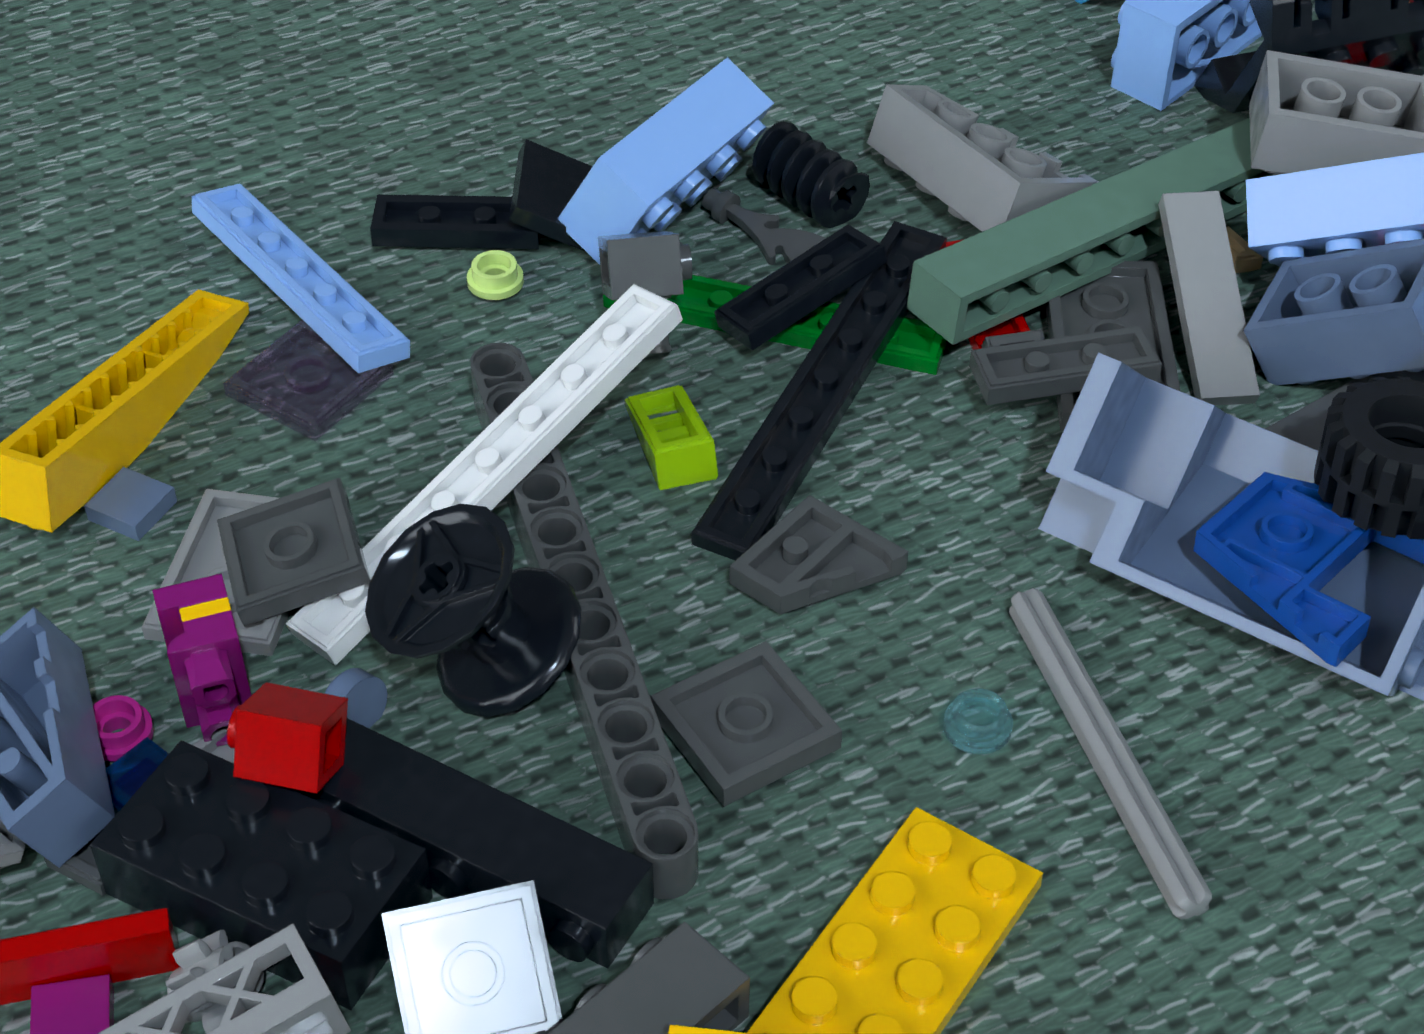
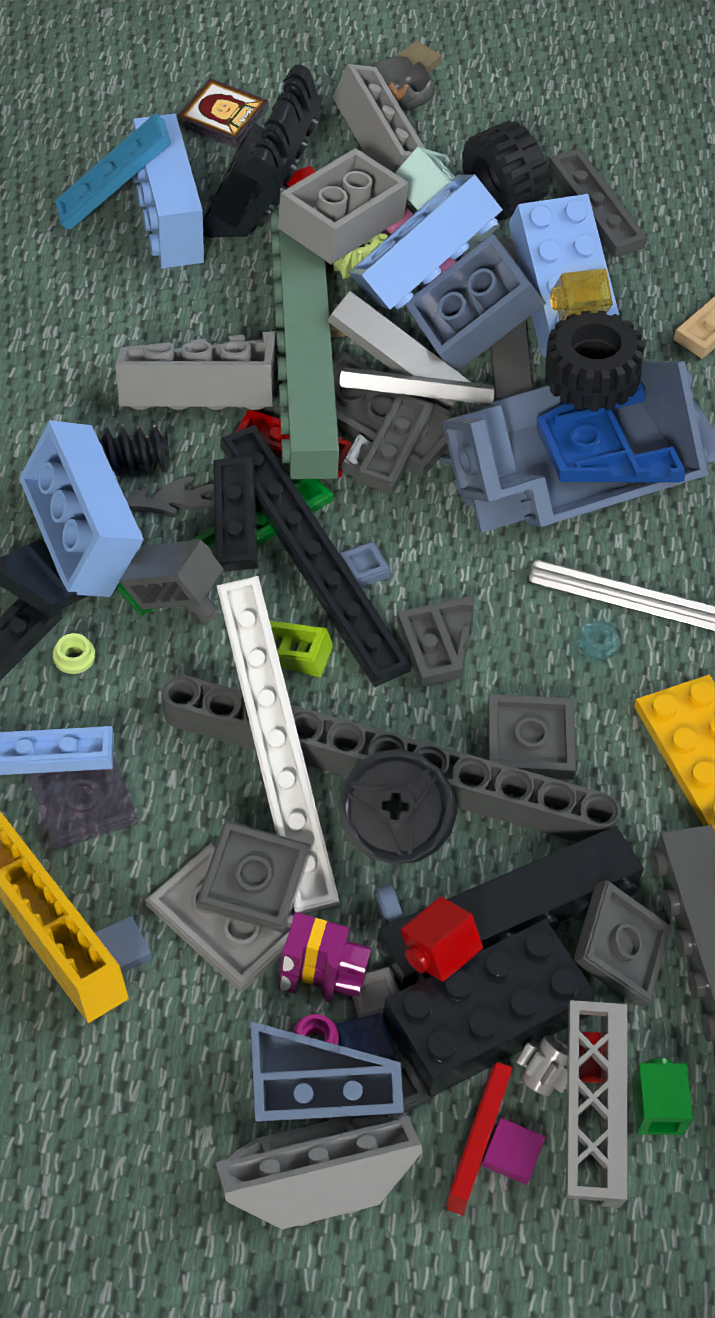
camera: 60 degrees left, 10 degrees up
(863, 443) = (366, 564): none -> sand blue tile
(1171, 336) = (417, 385): none -> tile

